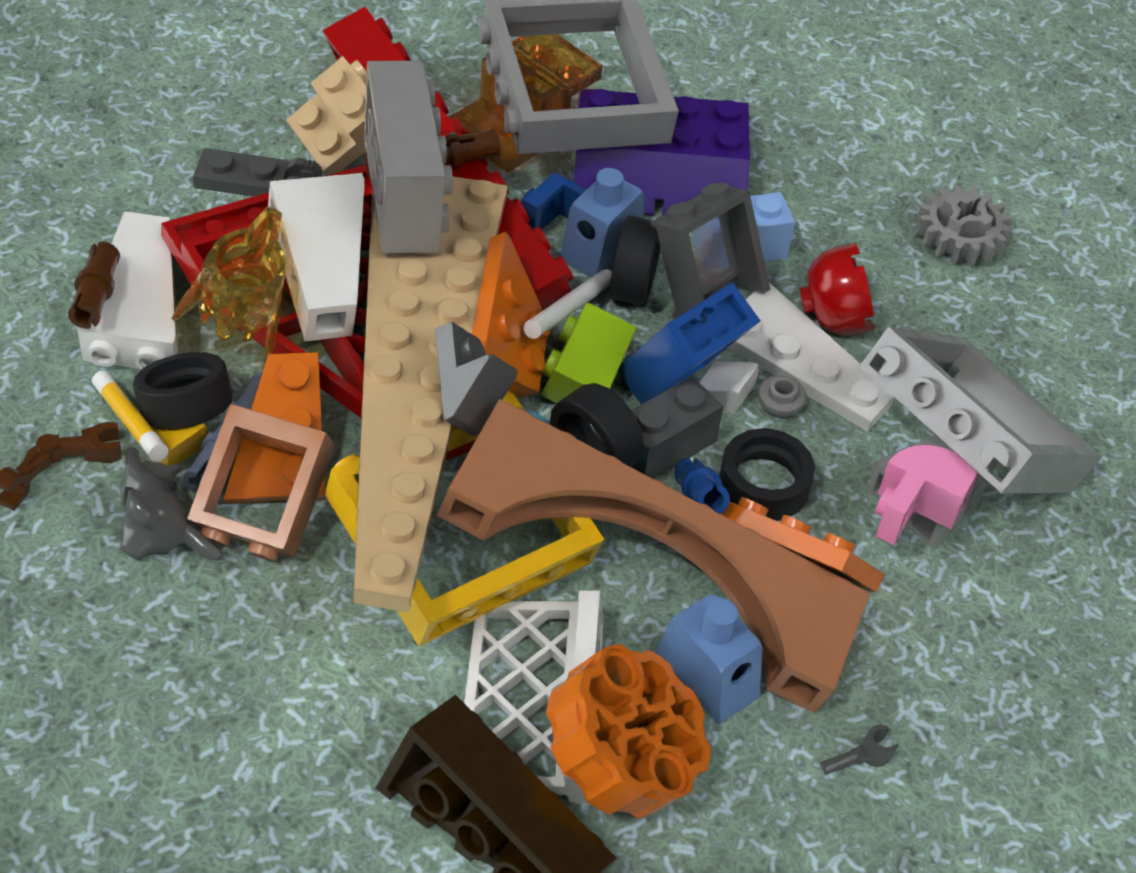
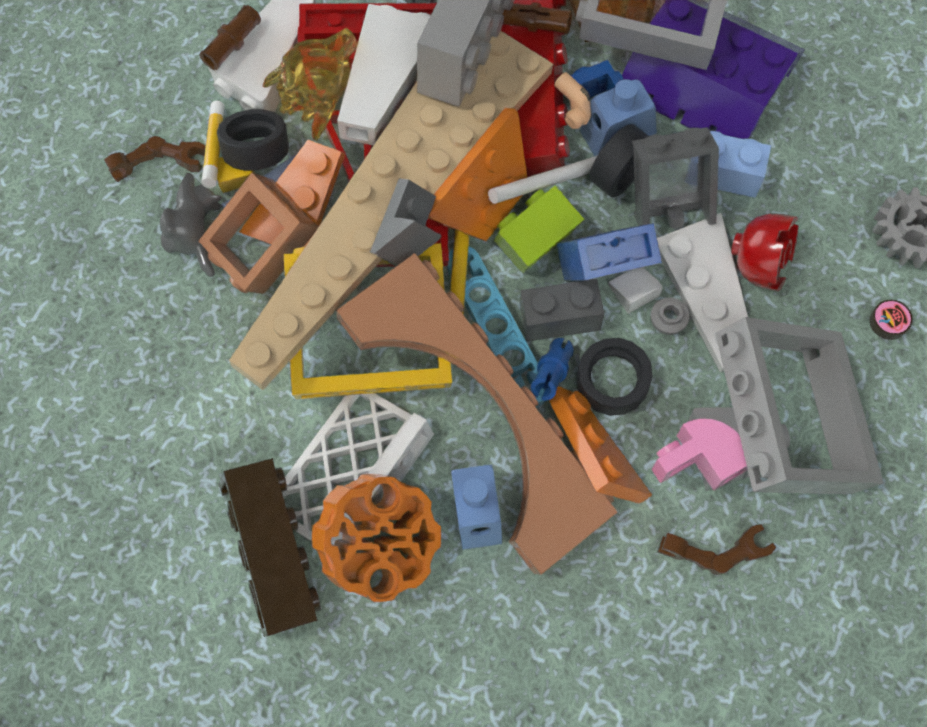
camera: 40 degrees right, 20 degrees up
(555, 216) = (579, 101): none -> light nougat arm
(607, 415) = (493, 298): black tyre -> none
(868, 752) = (541, 622): dark grey hand -> none
(997, 317) = (890, 319): none -> tile
(1013, 585) = (745, 549): none -> reddish brown piece

